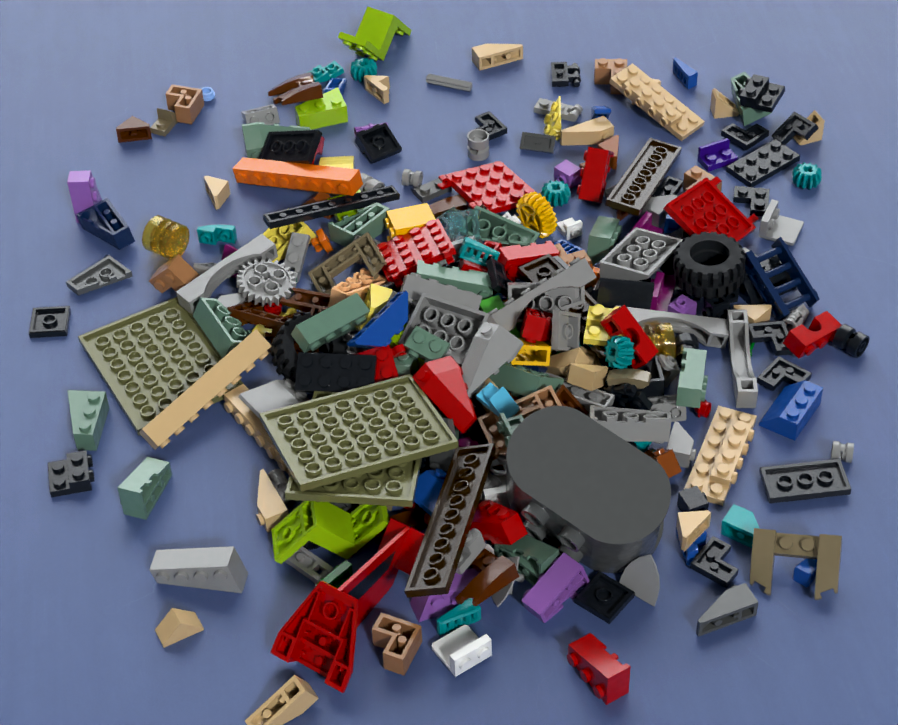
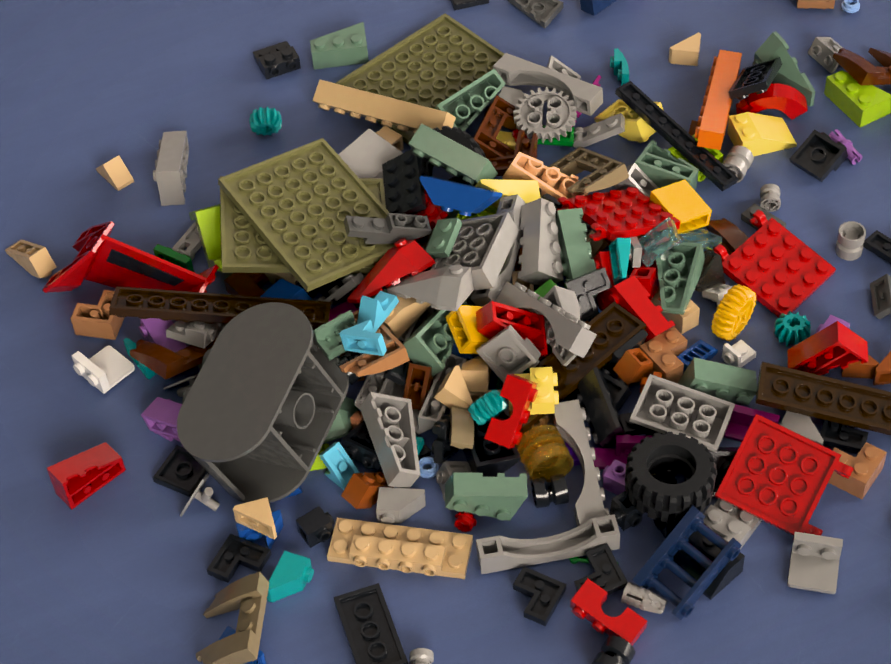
camera: 80 degrees right, 5 degrees up
(144, 487) = (252, 96): sand green wedge -> none
(165, 237) = (593, 30): clear yellow wheel -> none
(171, 485) = (265, 121): none -> teal gear
(173, 274) = (539, 49): medium nougat brick -> none
(322, 241) = (636, 147): orange tile -> none
(401, 378) = (387, 230): none -> dark grey slope
(542, 400) = (363, 339): none -> medium azure slope
(669, 368) = (511, 467): light grey bracket -> none
(731, 607) = (174, 575): slope -> none
(755, 196) = (869, 538): plate -> none
(756, 313) = (629, 551): tan slope -> none
(792, 409) = (481, 610): blue slope -> none

